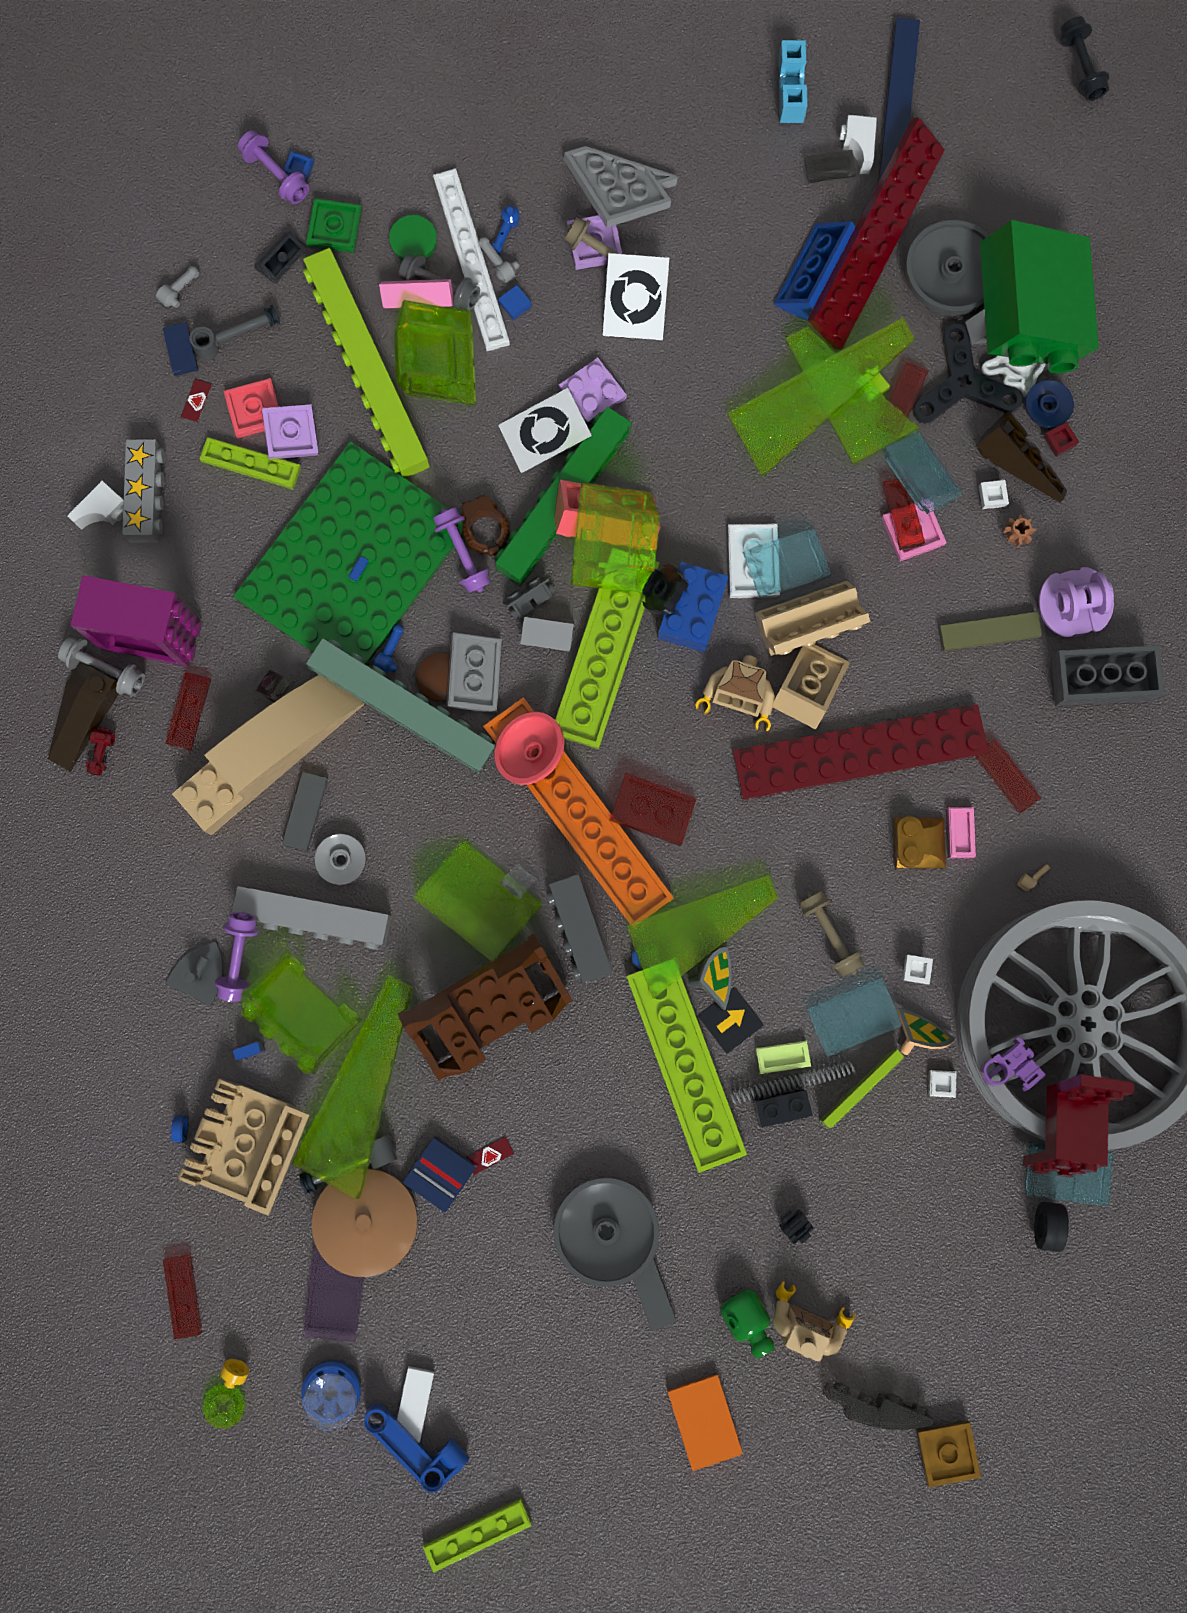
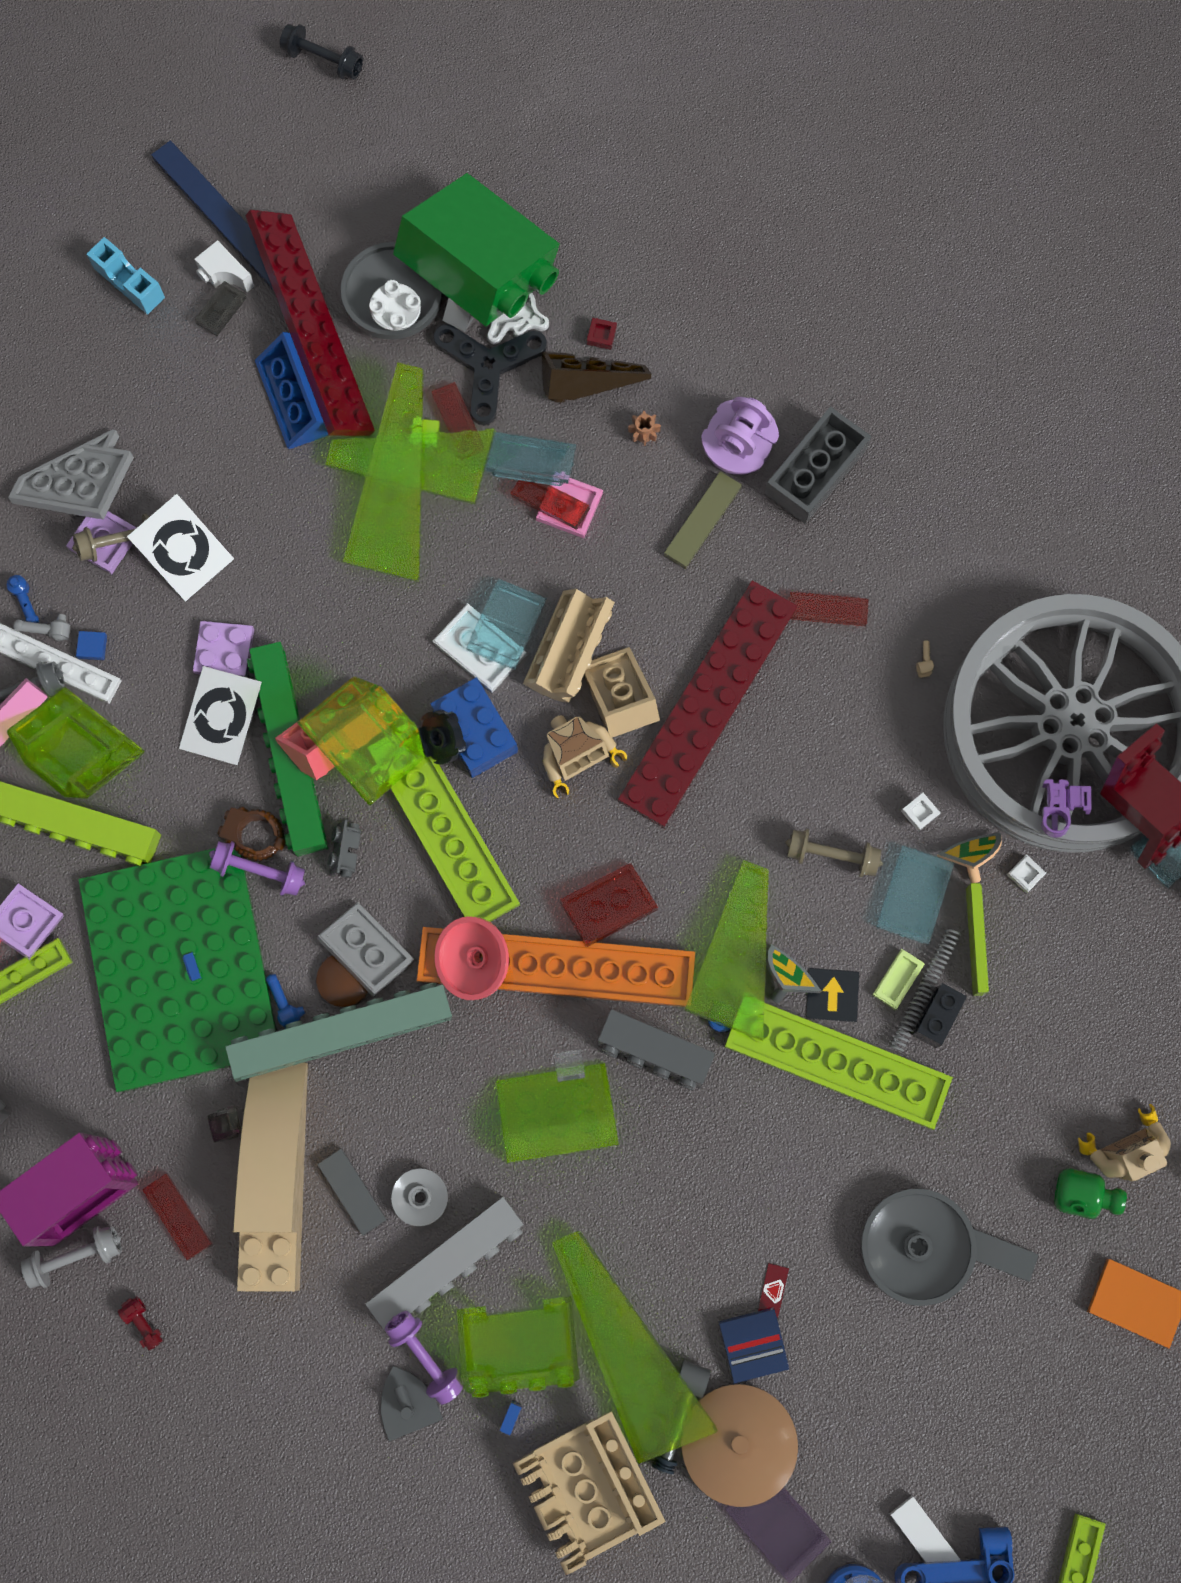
camera: 45 degrees left, 5 degrees down
(83, 707) = (90, 1305): dark brown wedge -> none
(179, 1128) = (524, 1537): blue tile -> none
(485, 1009) = (652, 1182): reddish brown piece -> none
(547, 634) = (389, 861): light grey hinge -> none
(796, 1226) = (1043, 1089): black gear -> none
(919, 843) = (821, 722): pearl gold slope -> none
(943, 279) = (395, 306): none -> white dish
(961, 832) = (841, 683): bright pink tile -> none
(993, 494) = (598, 421): white plate -> none
(1054, 395) = (570, 308): dark blue dish -> none

